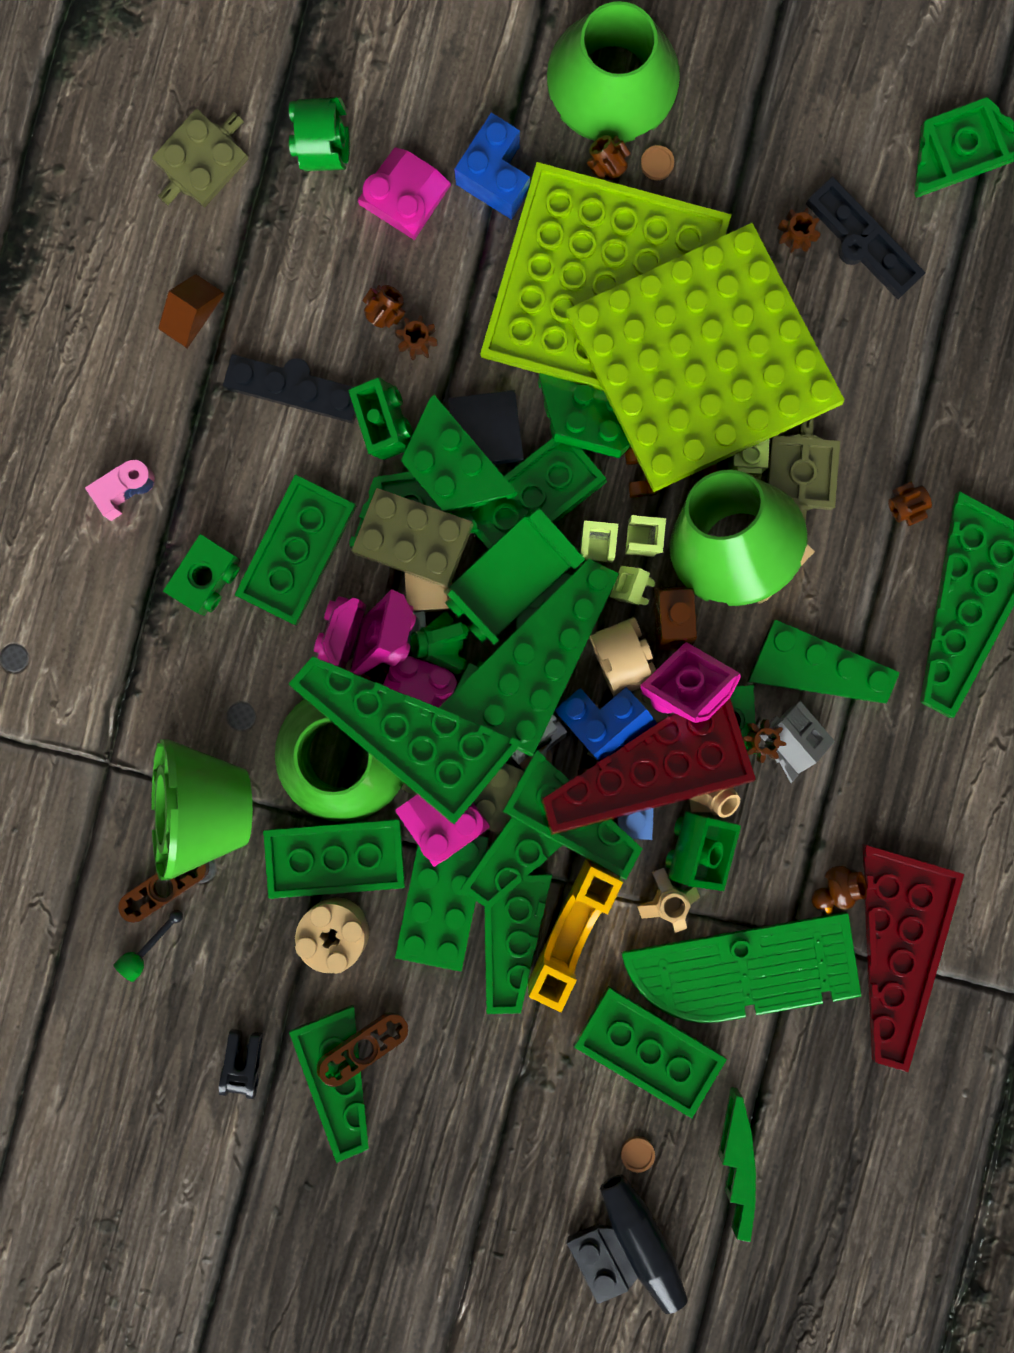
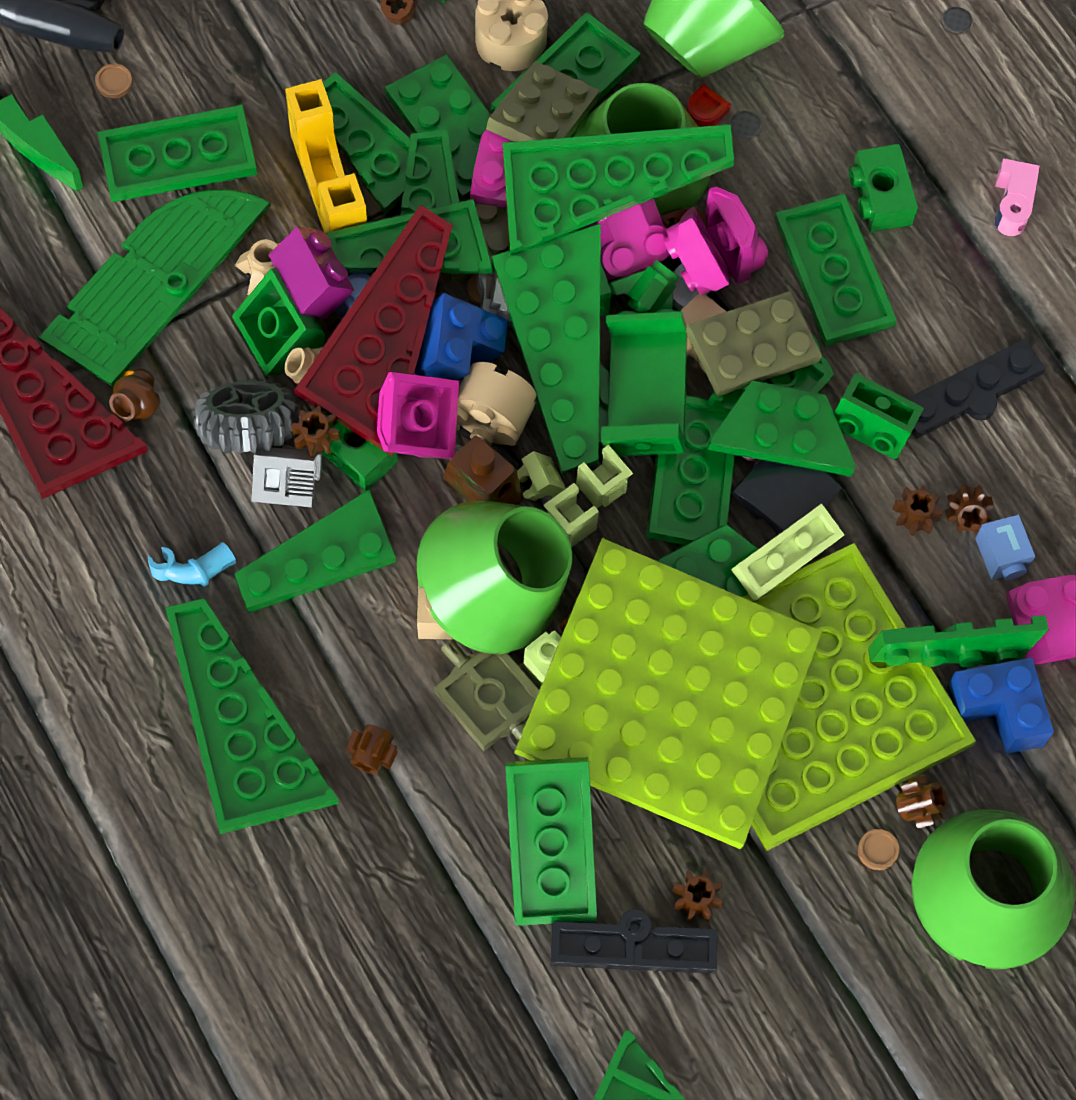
camera: 130 degrees right, 20 degrees down
(256, 751) = (707, 107): none -> red tile
(382, 841) = (543, 106): none -> olive plate
(387, 260) = (1005, 548): none -> medium blue brick
(490, 220) = (958, 643): none -> green wing
(533, 381) = (787, 552): none -> yellowish green plate
(663, 858) = (311, 272): none -> magenta brick
(811, 800) = (246, 416): none -> dark grey gear
(865, 334) = (551, 841): none -> plate
(910, 728) = (195, 571): none -> medium azure piece

